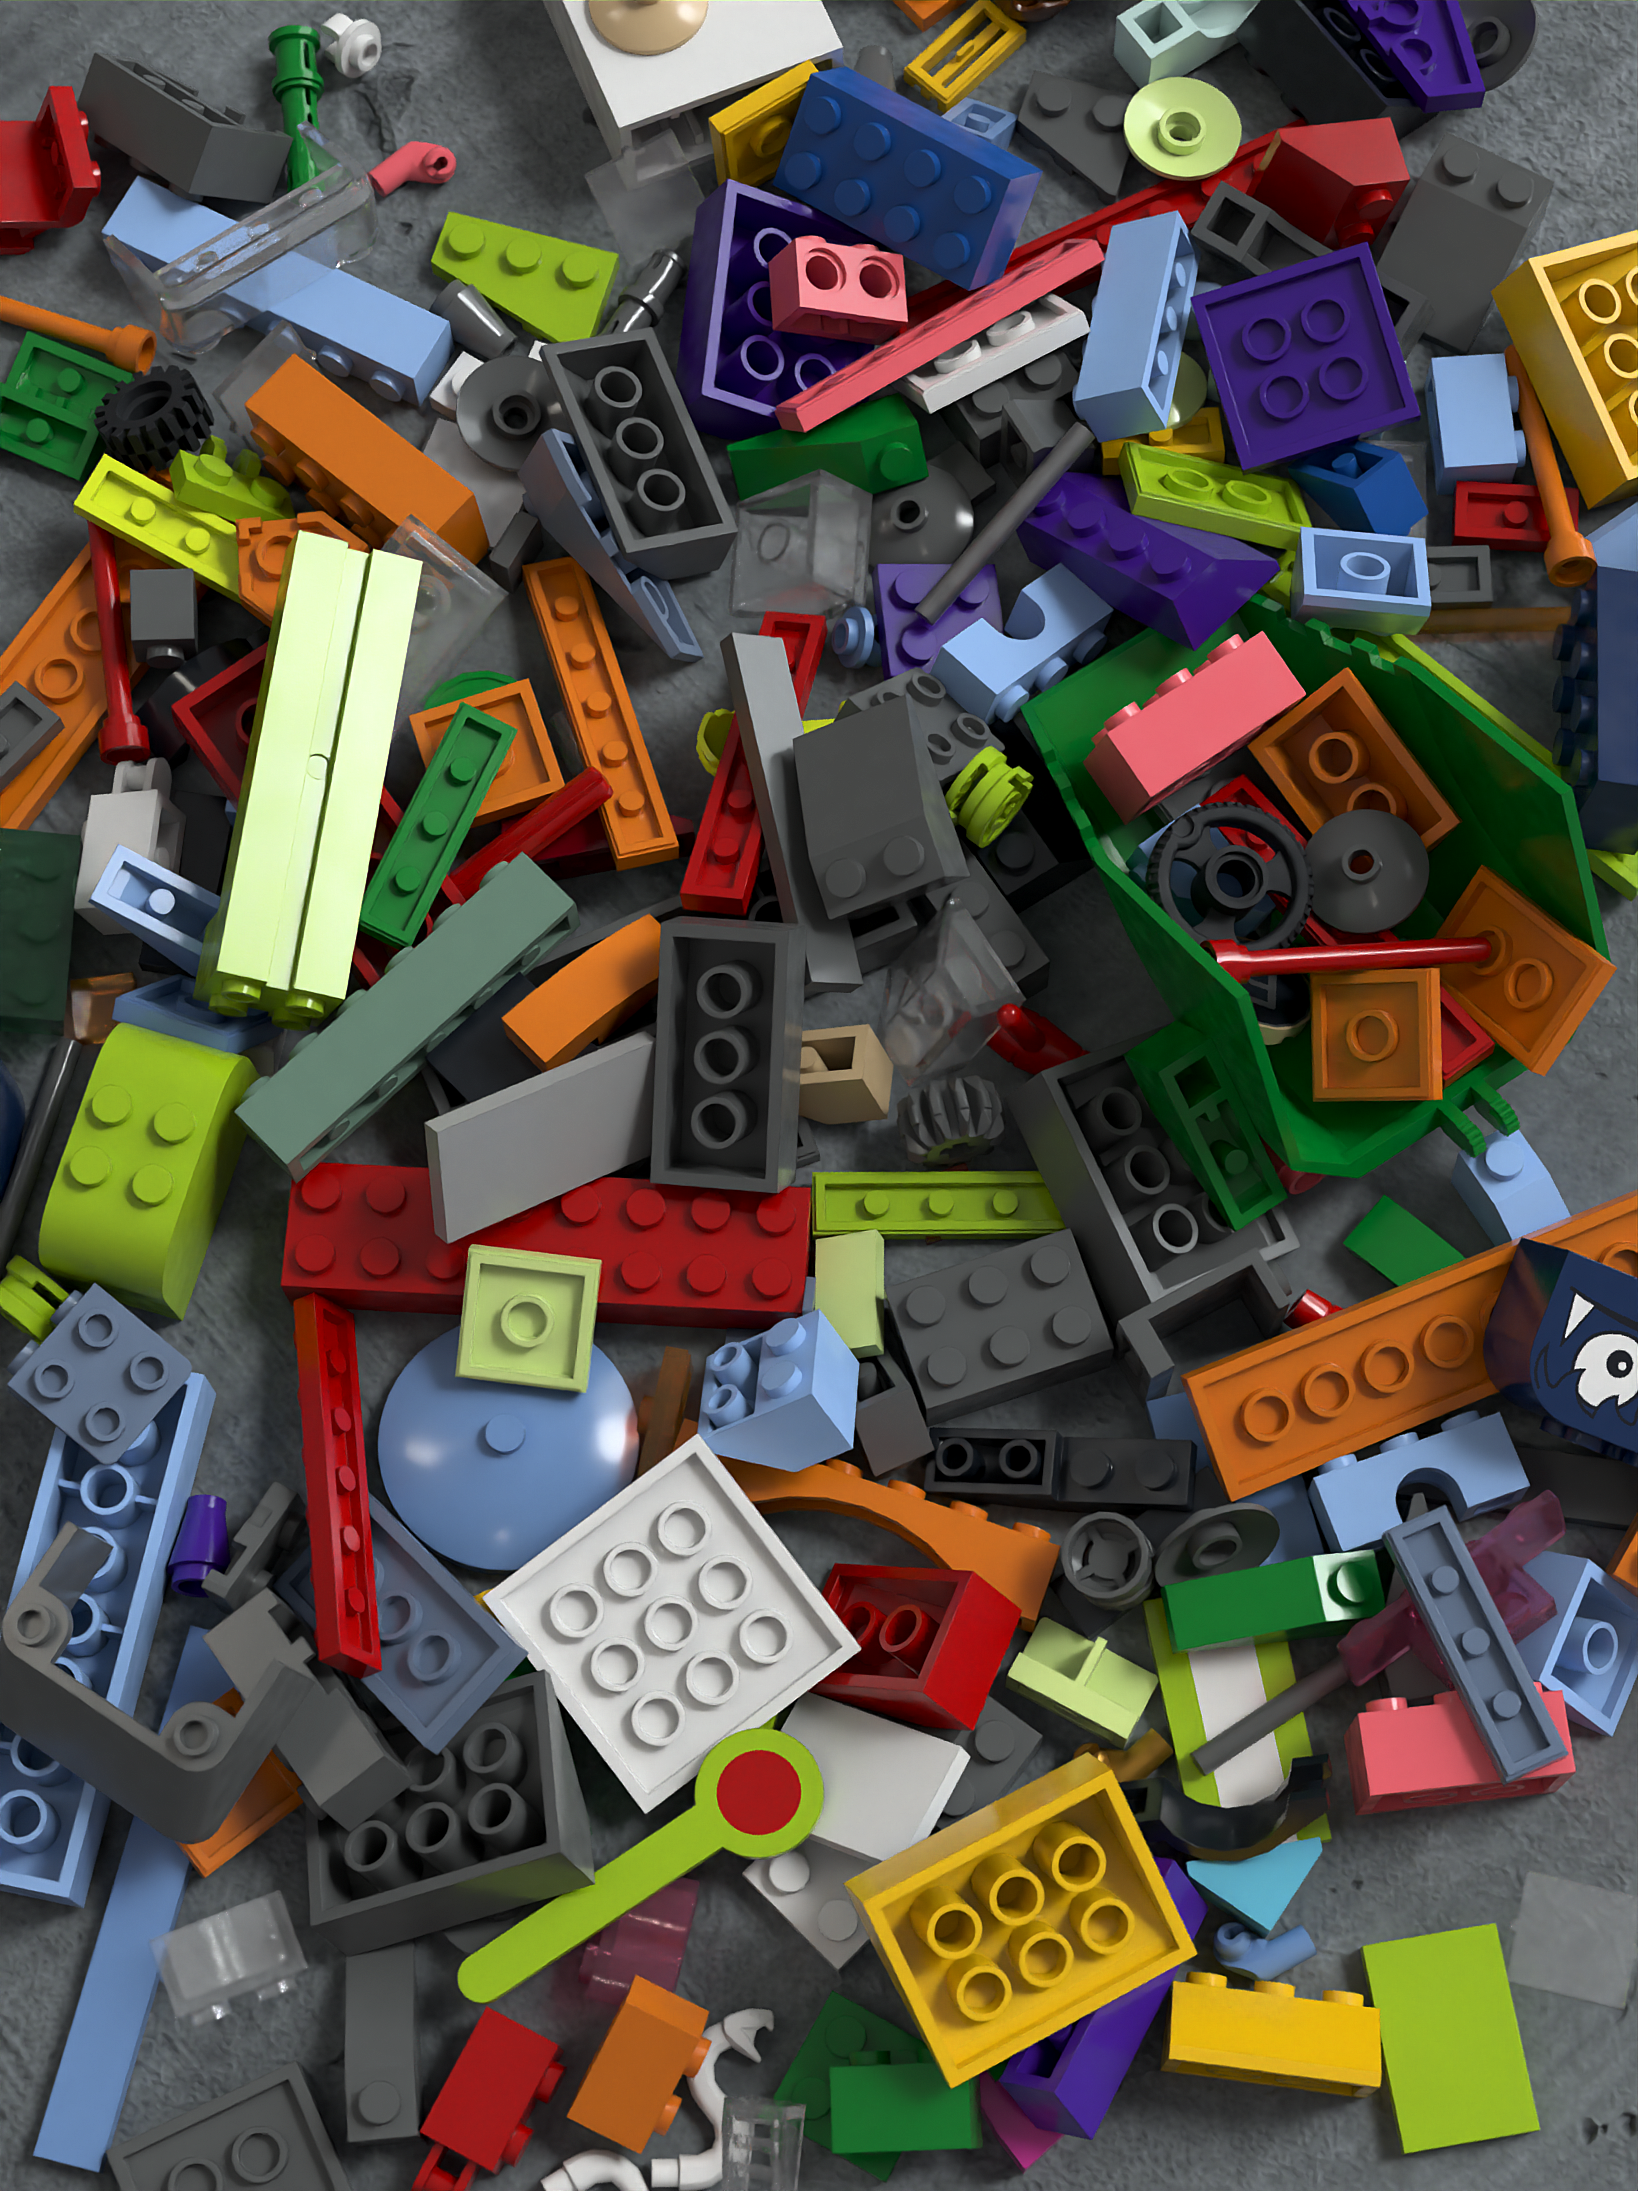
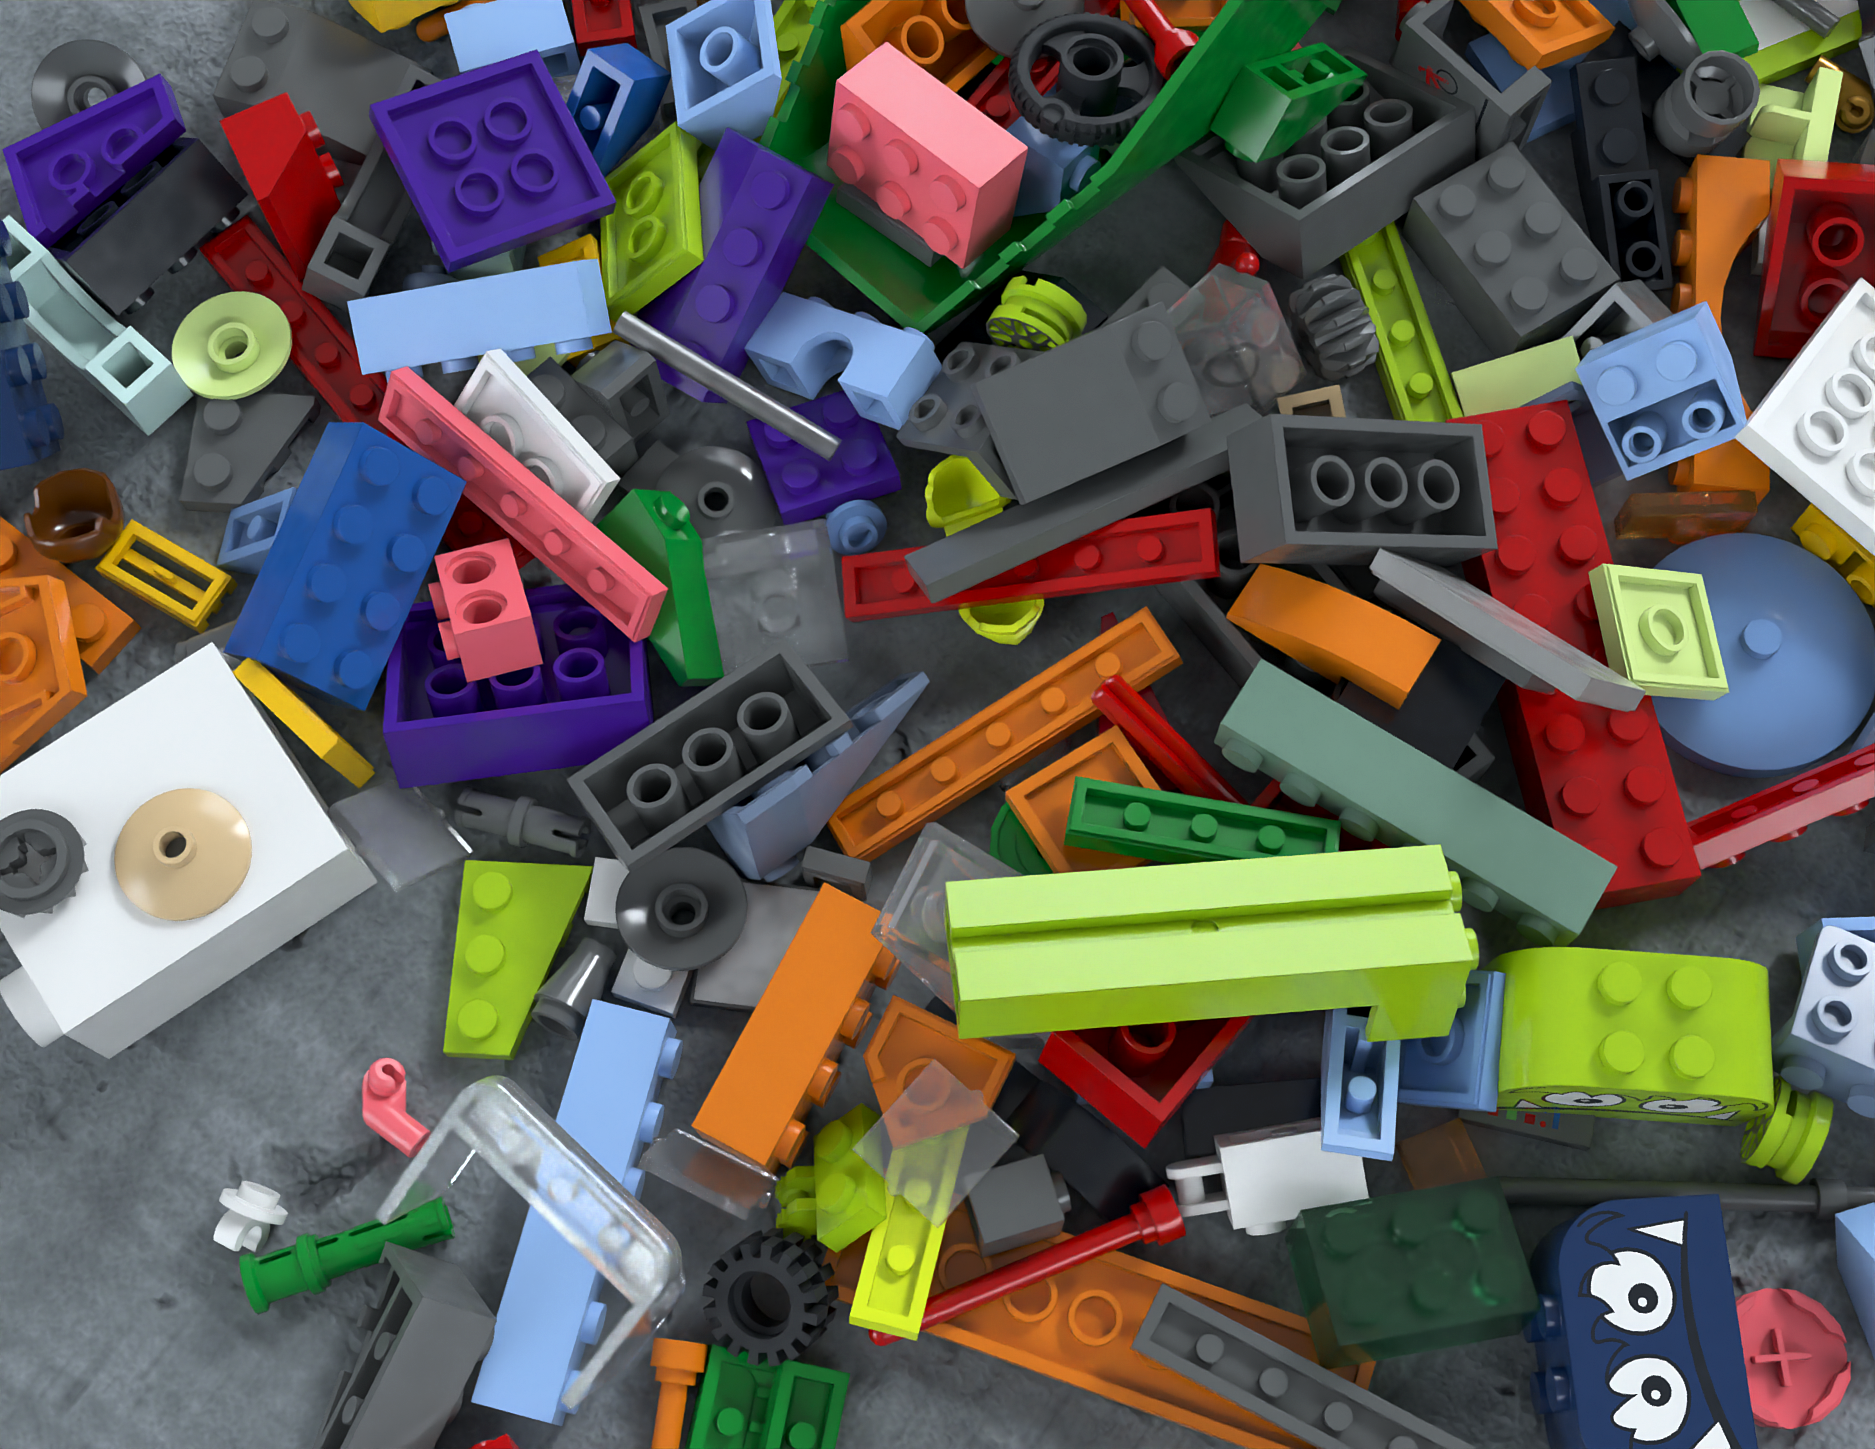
camera: 105 degrees left, 0 degrees up
(224, 548) = (936, 1143): none -> clear piece

